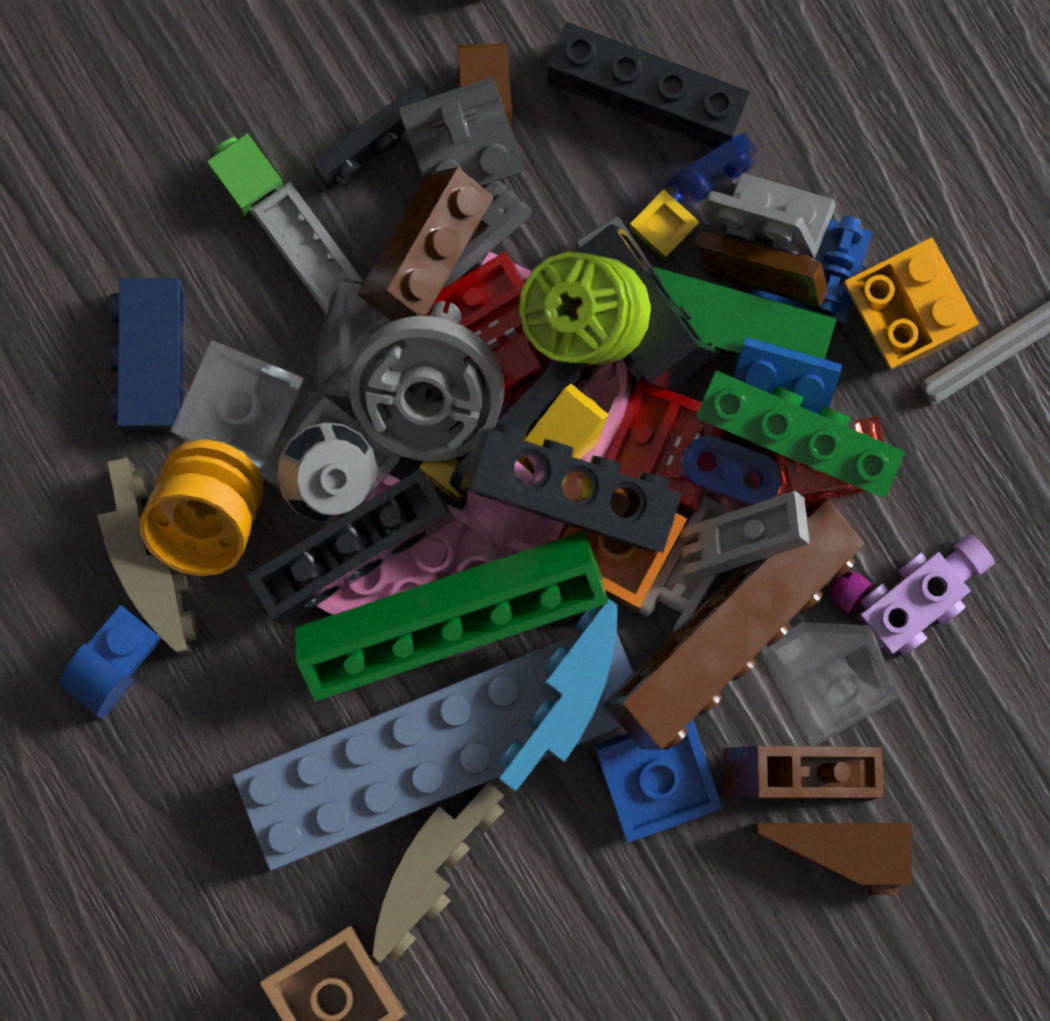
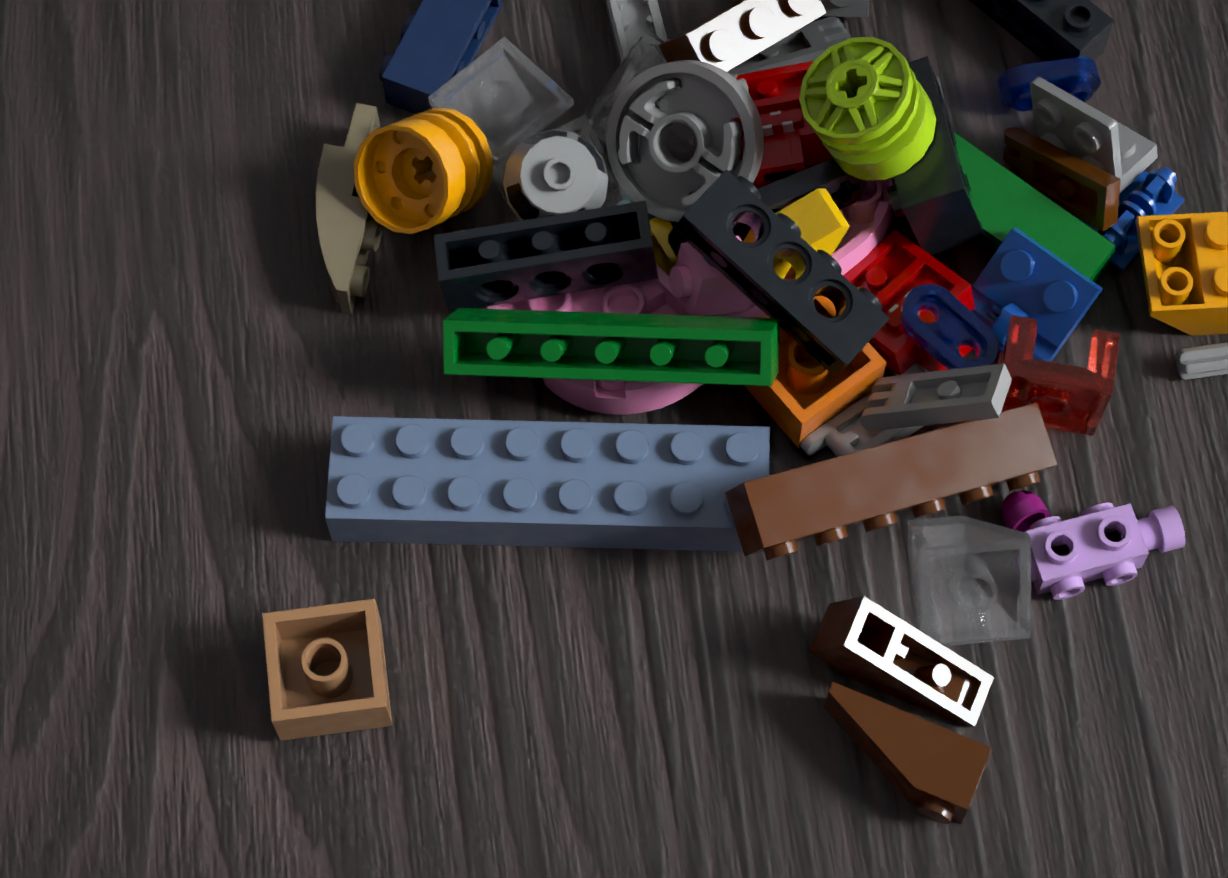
camera: 30 degrees right, 15 degrees down
(104, 666) = (257, 276): blue brick -> none
(416, 886) = (462, 601): dark tan slope -> none
(579, 681) = (707, 461): dark azure slope -> none
(657, 786) = (749, 603): blue hinge -> none
(664, 225) = (980, 114): yellow plate -> none
(800, 434) = (1034, 317): green bracket -> none

